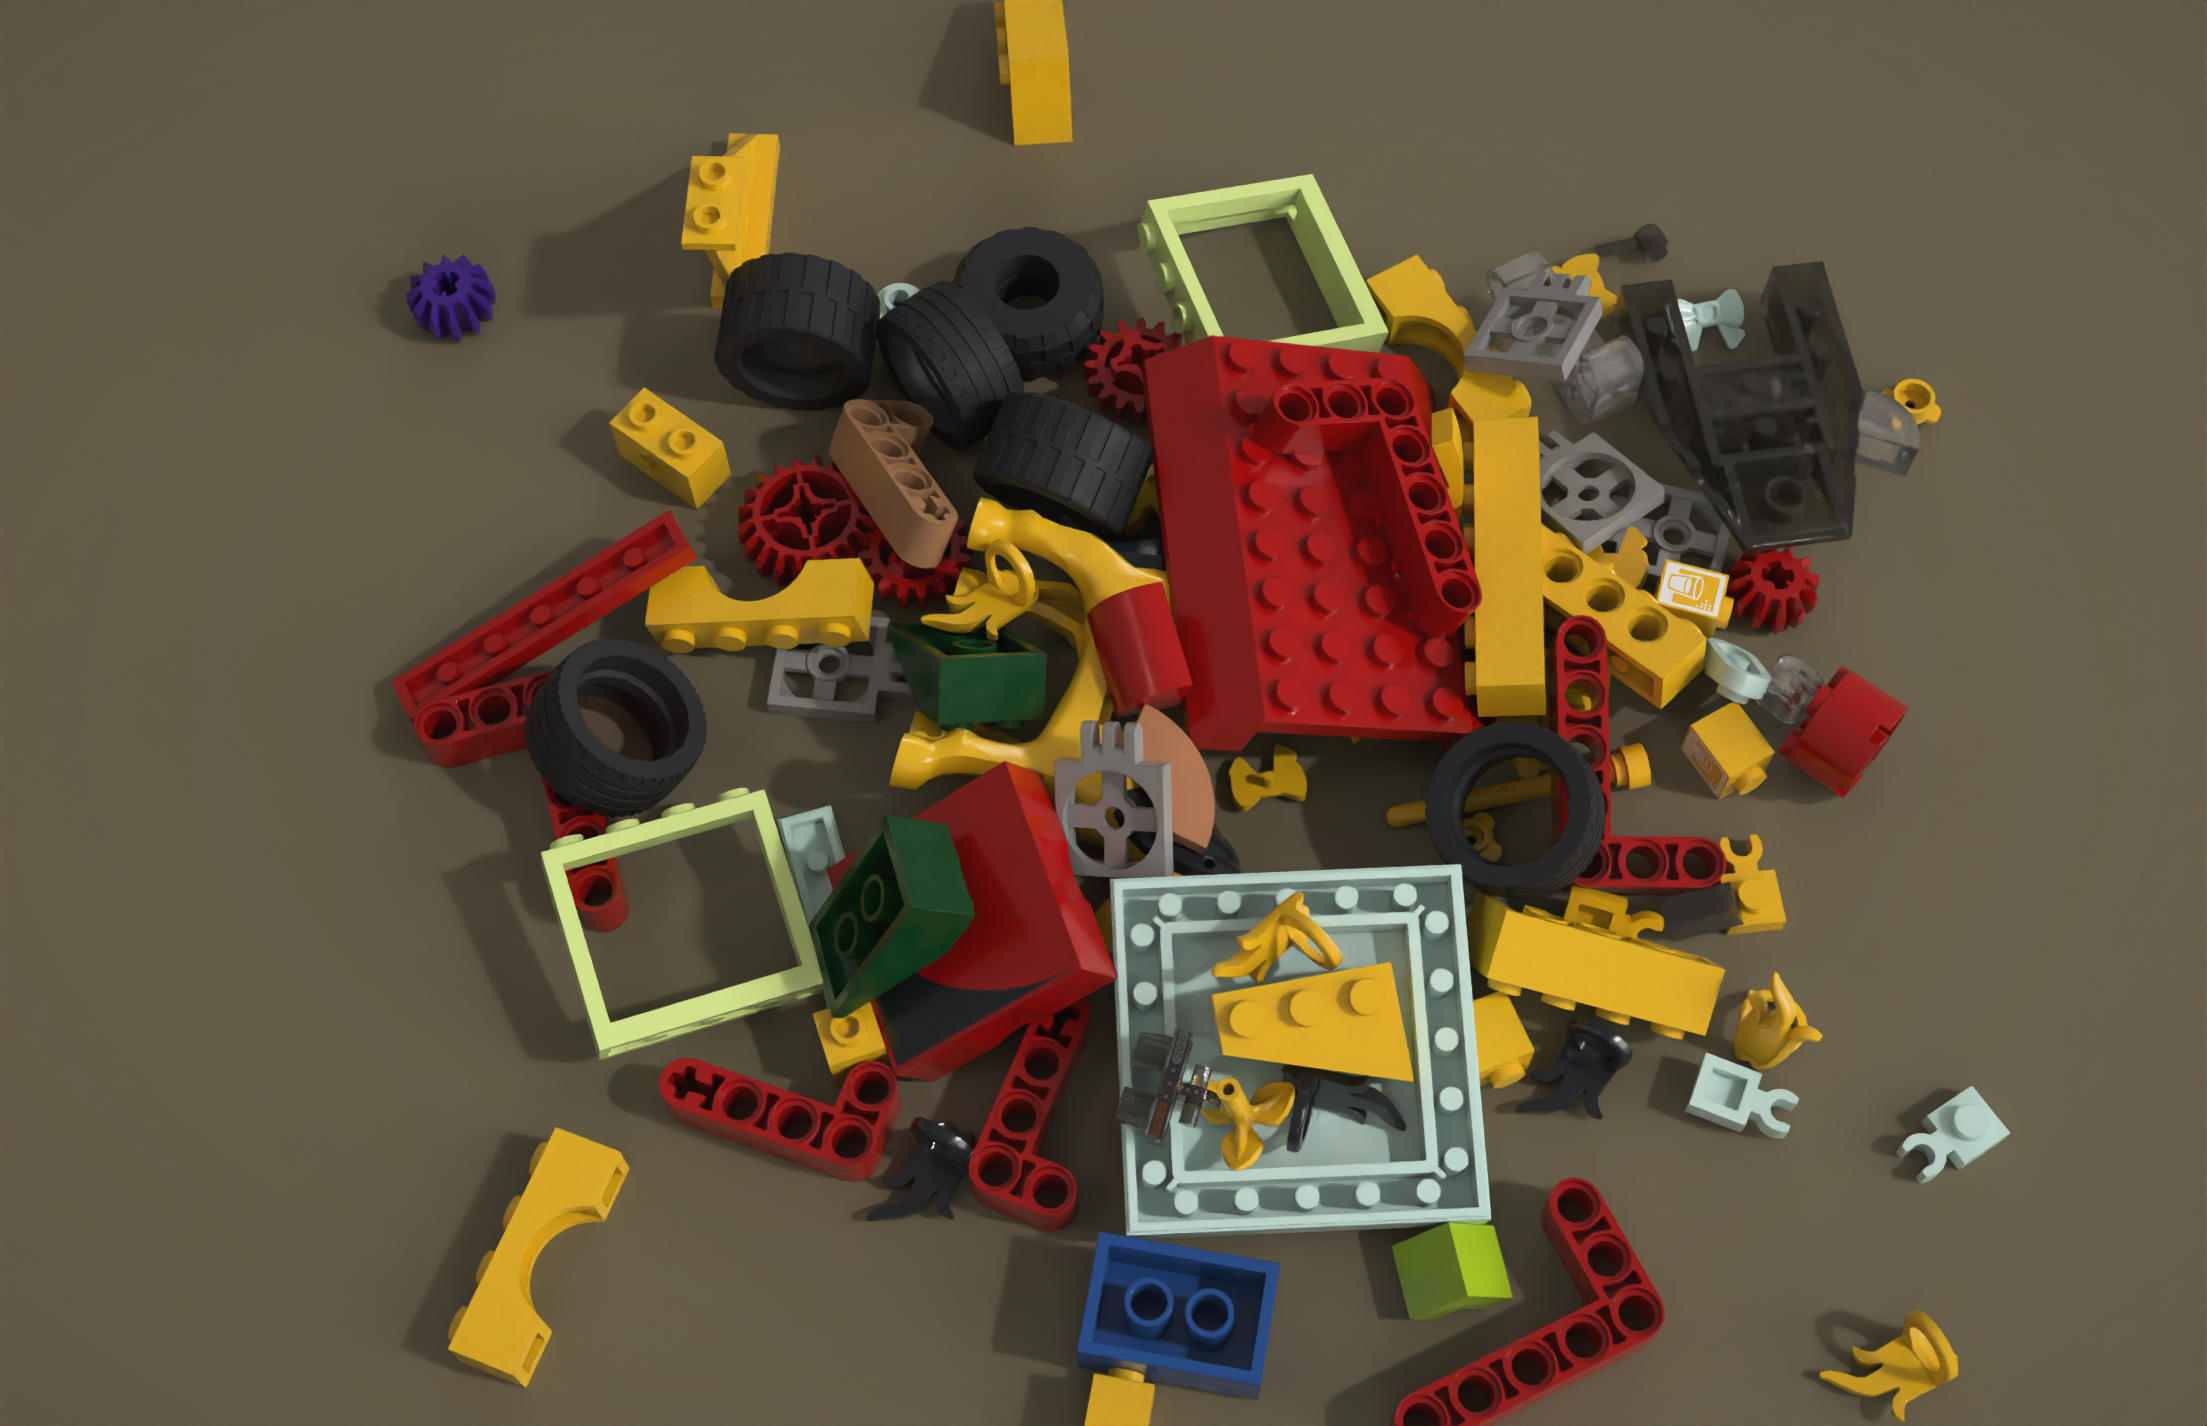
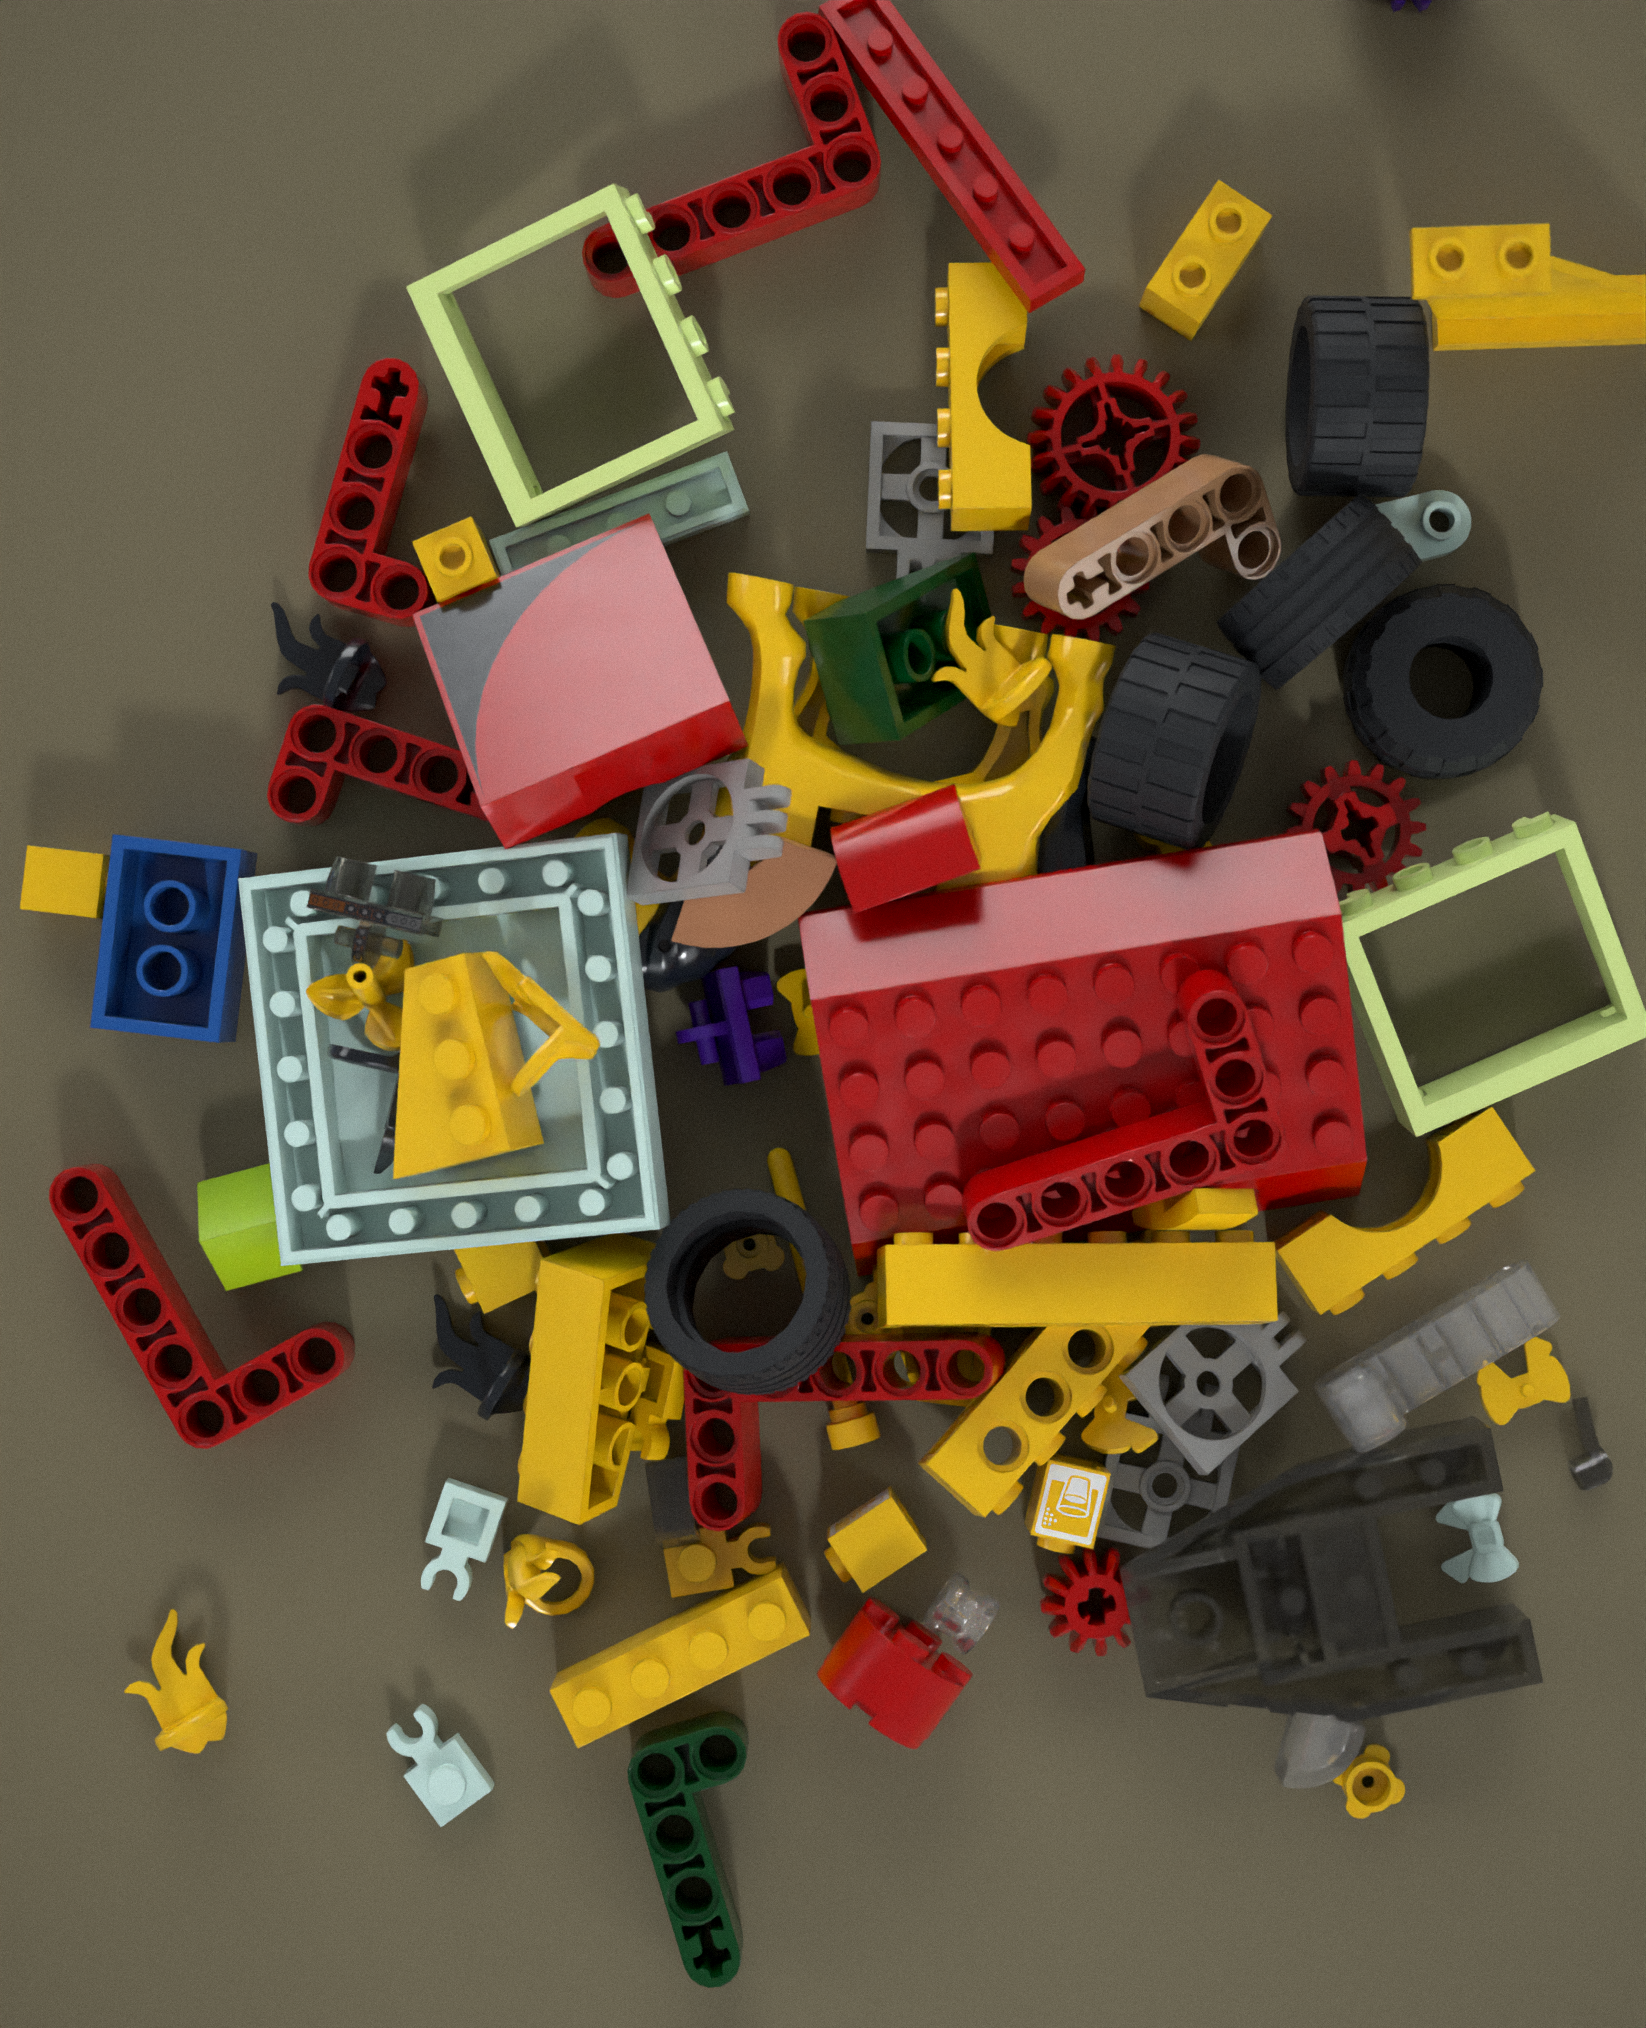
camera: 85 degrees right, 25 degrees up
(569, 1186) = (132, 233): yellow arch -> none
(580, 763) = (840, 309): black tyre -> none
(890, 912) = (560, 591): dark green slope -> none
(1280, 841) = (724, 1028): none -> dark purple hips
(1536, 309) = (1461, 1334): light grey piece -> none
(1735, 670) = (972, 1551): light aqua plate -> none
(1838, 912) = (680, 1655): none -> yellow brick
(2010, 909) = (697, 1852): none -> dark green beam

